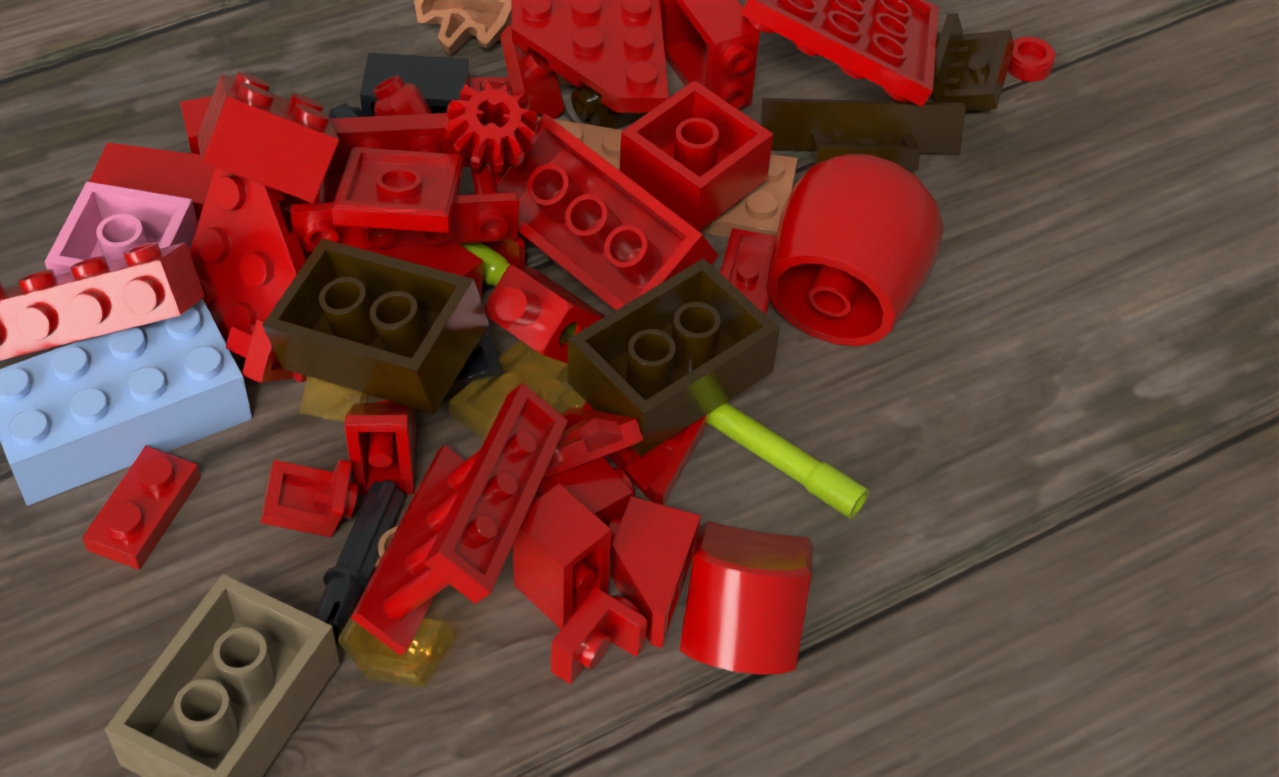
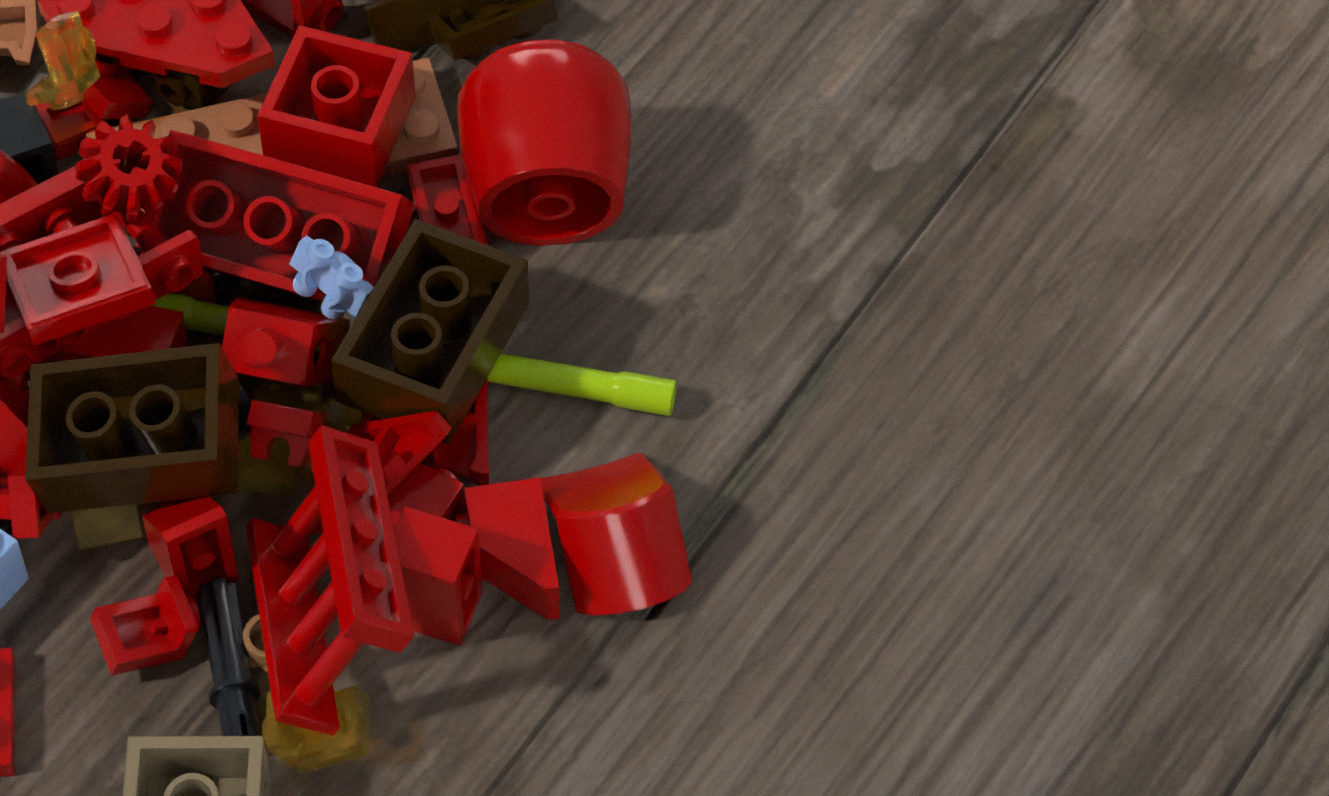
camera: 25 degrees left, 5 degrees up
(503, 375) = (277, 421): none -> red tile
(504, 43) = (70, 59): none -> clear yellow bracket
(590, 631) = (496, 622): red bracket -> none
(611, 273) = (333, 274): none -> light blue piece

